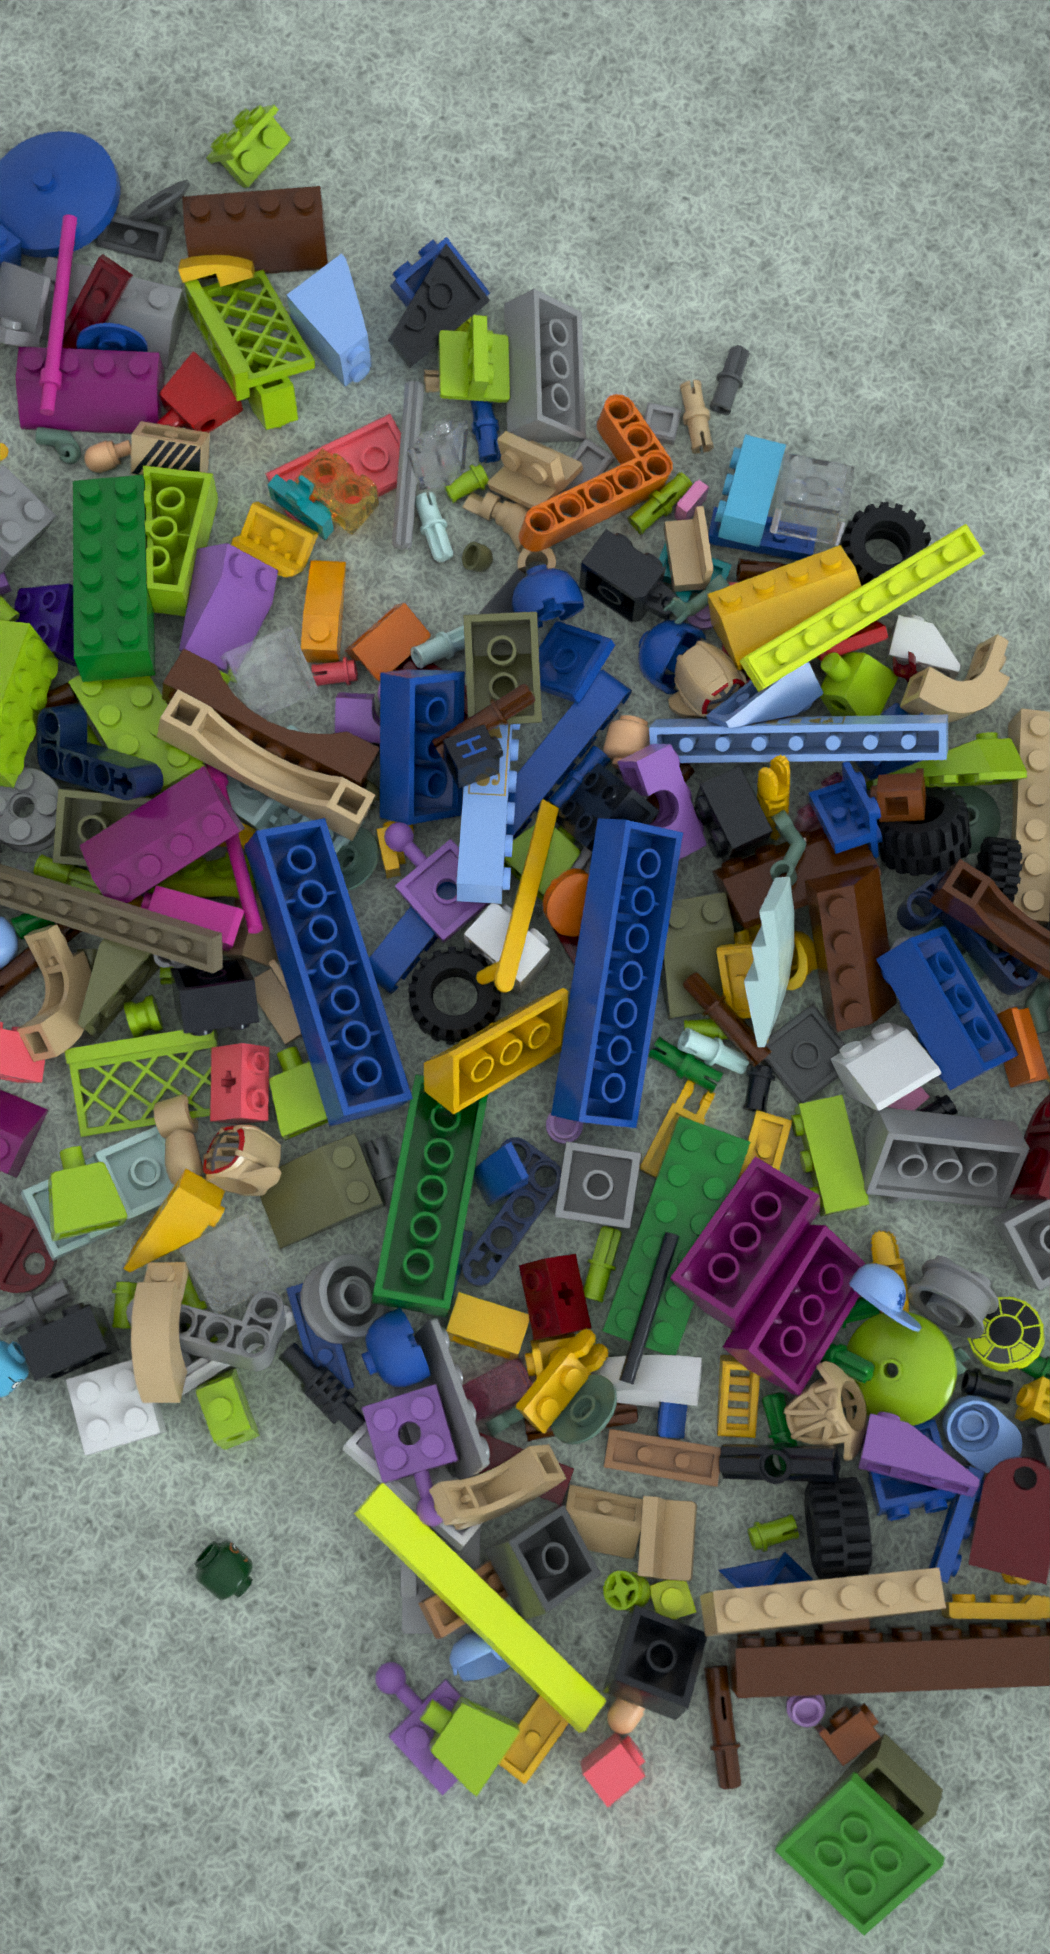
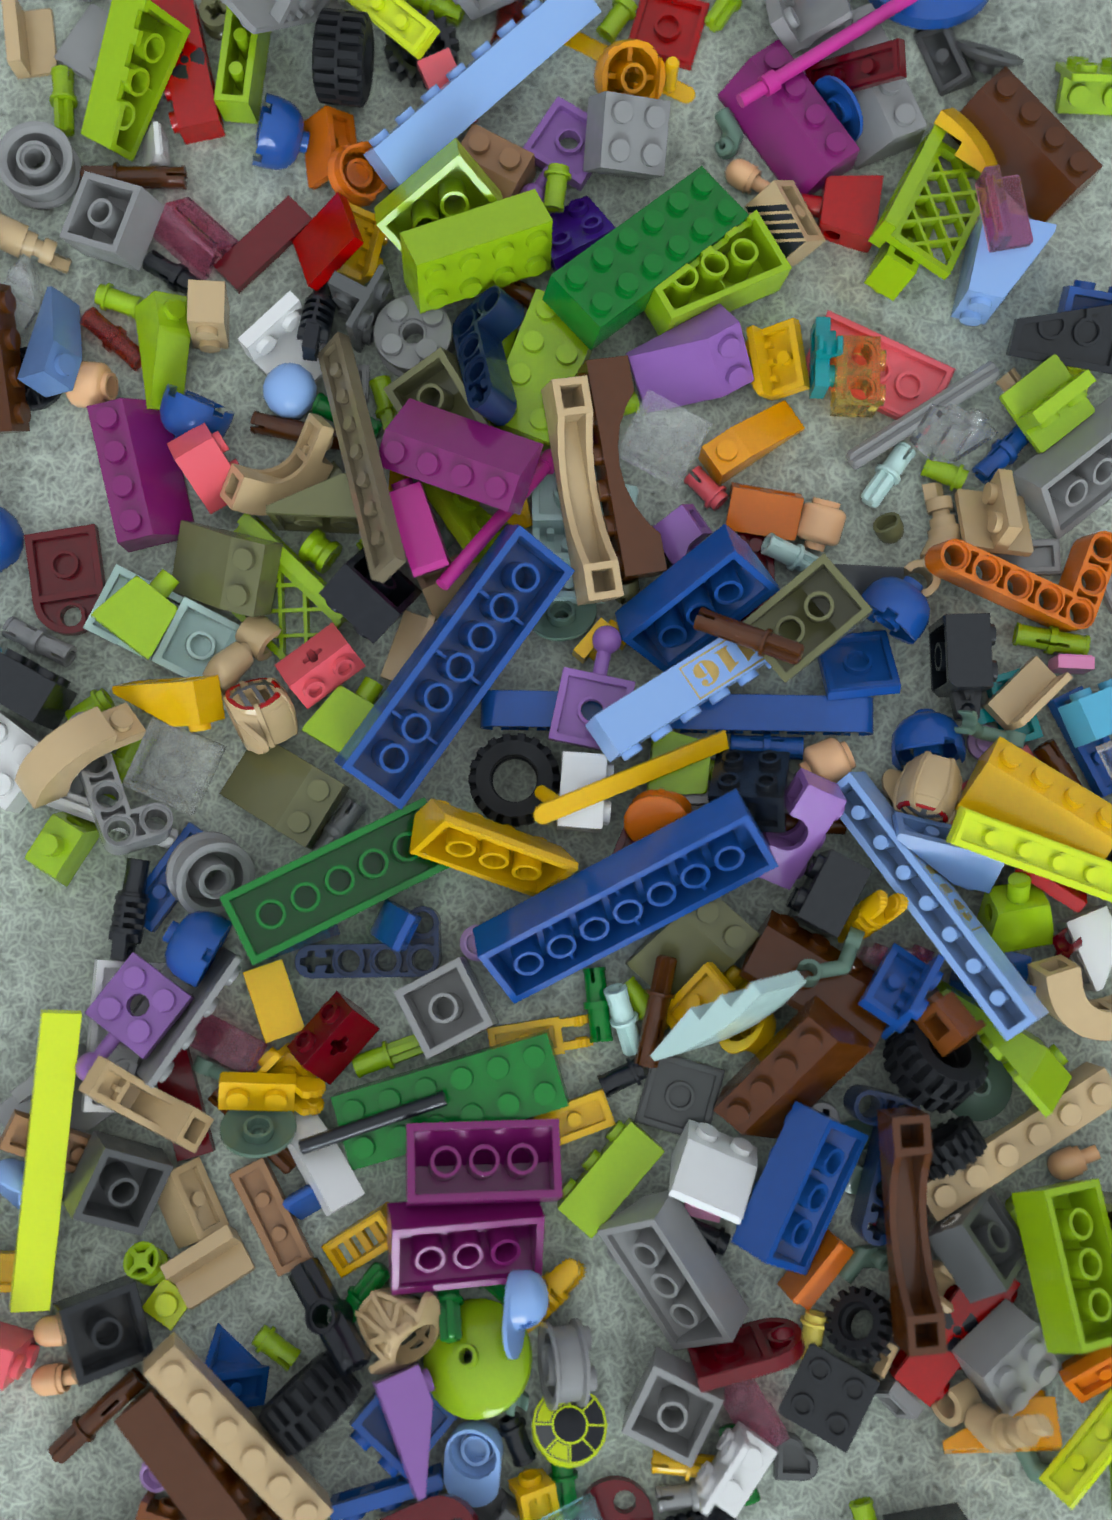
camera: 55 degrees right, 5 degrees up
(98, 1101) = (226, 569): none -> olive slope
(298, 283) = (1003, 210): none -> clear pink panel
(434, 605) = (821, 524): none -> light nougat head
(472, 756) = (712, 648): black brick -> none
(666, 1742) = (52, 1379): none -> light nougat cylinder

